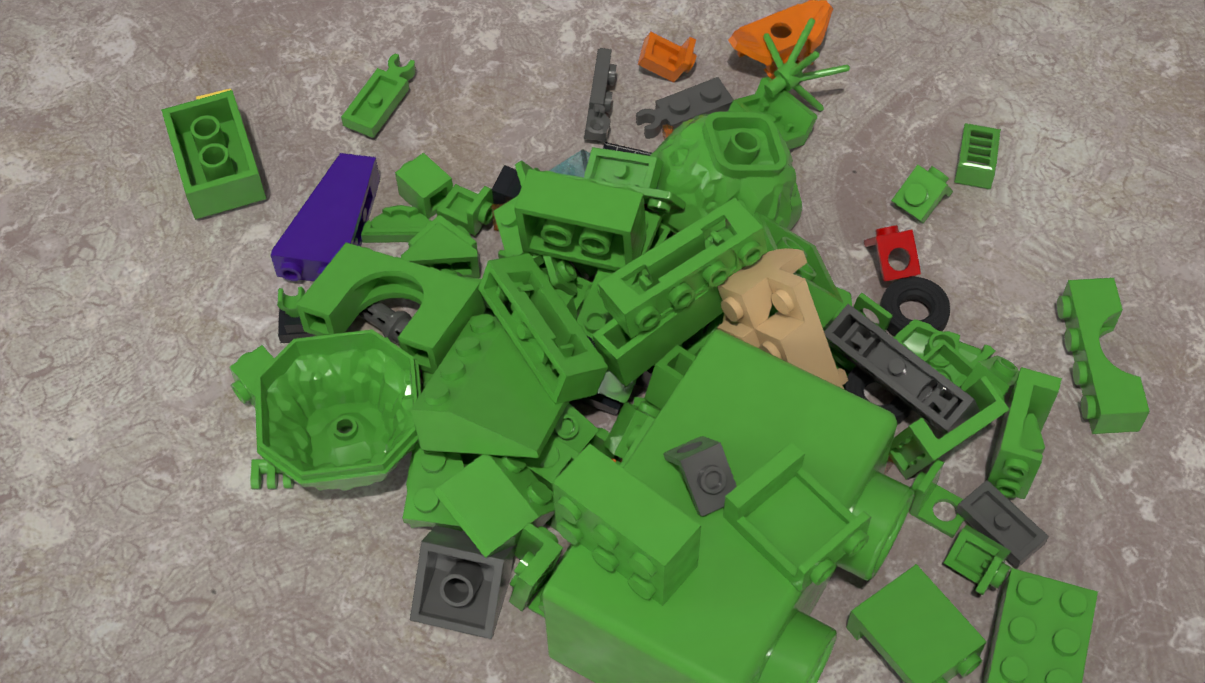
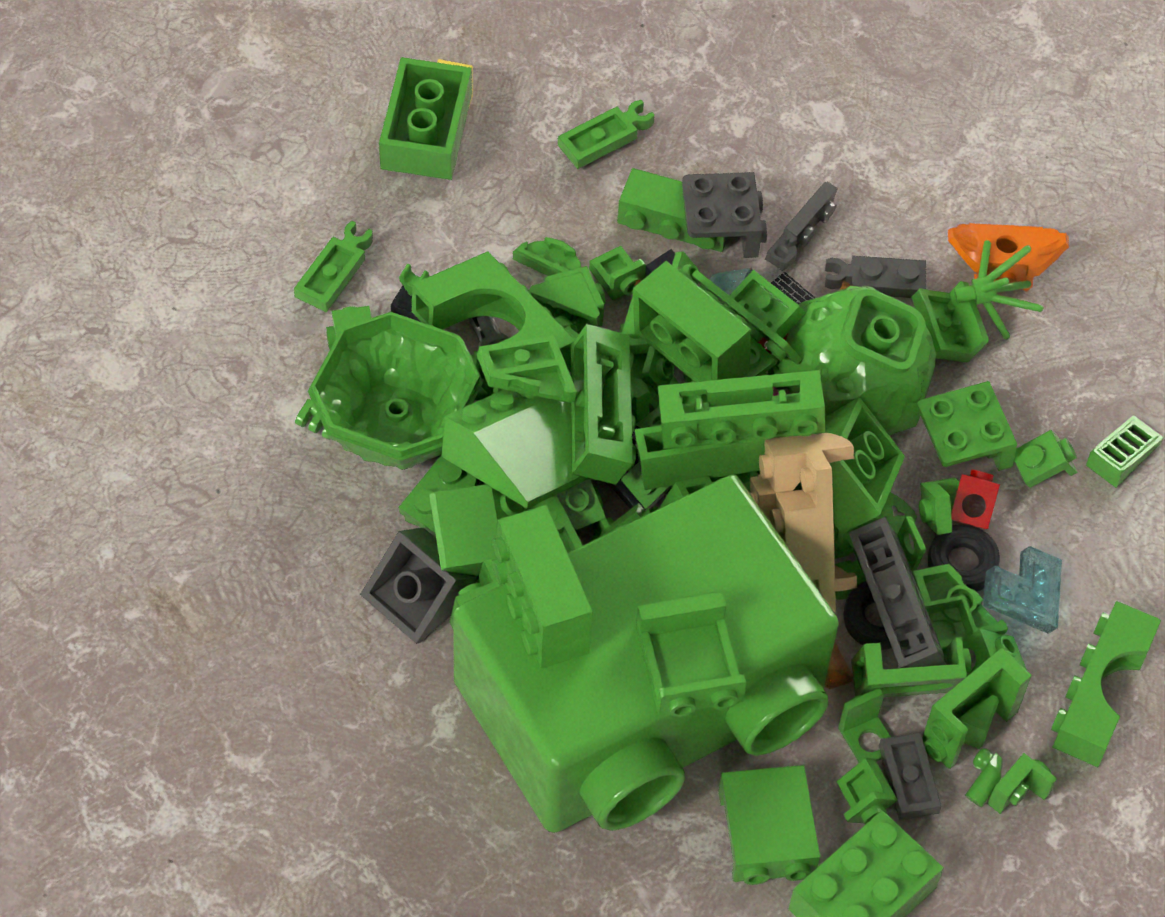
camera: 25 degrees right, 0 degrees up
(204, 329) = (333, 268): none -> bright green plate
(328, 218) = (494, 222): dark purple slope -> none
(423, 184) = (592, 232): bright green brick -> none
(458, 327) = (528, 367): none -> bright green wing
(484, 131) = (657, 207): none -> bright green brick
(527, 109) = (725, 208): none -> dark grey bracket
(667, 57) = (889, 219): orange bracket -> none
(704, 472) = (638, 581): dark grey bracket -> none
(850, 194) = (968, 426): none -> bright green bracket
(869, 273) = (937, 504): none -> bright green bracket
(990, 309) = (1030, 596): none -> clear light blue plate
(1065, 486) = (991, 769): none -> bright green arm
(1094, 477) = (1022, 776): none -> bright green bracket

